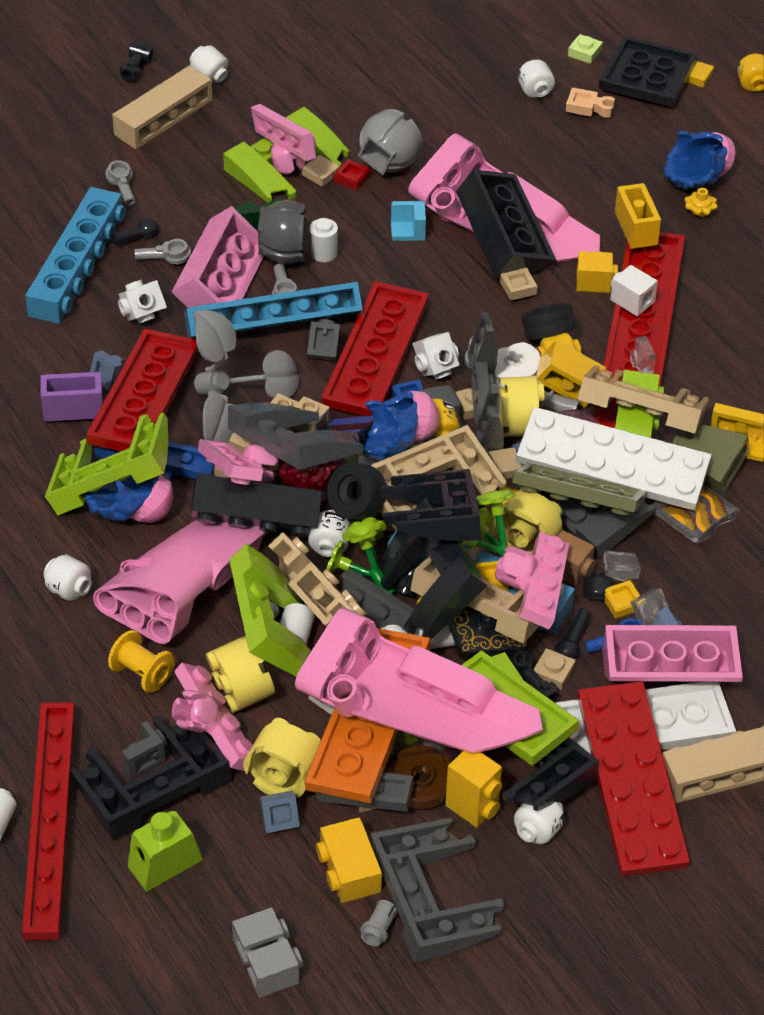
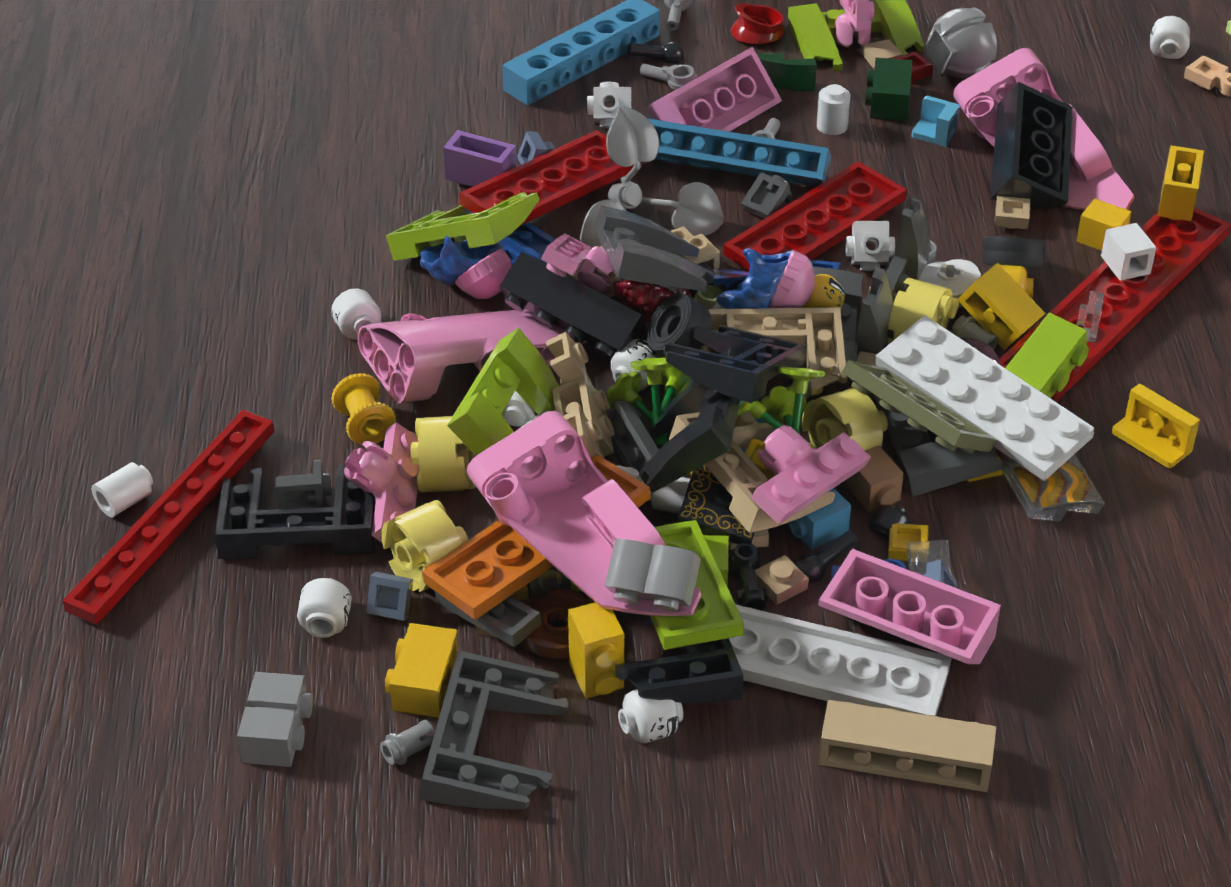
camera: 30 degrees right, 5 degrees down
(162, 850) = (249, 580): lime torso -> none
(203, 177) = (757, 24): none -> red piece
(234, 843) = (324, 607): none -> white head
(282, 232) = (792, 87): dark grey piece -> none
(353, 203) = (889, 89): none -> dark green brick
(503, 711) = (652, 573): none -> light grey brick
(621, 565) = (927, 507): clear plate -> none
(632, 779) = (779, 717): red plate -> none
(683, 410) = (1084, 374): tan wedge -> none
(727, 453) = (1117, 441): olive torso -> none

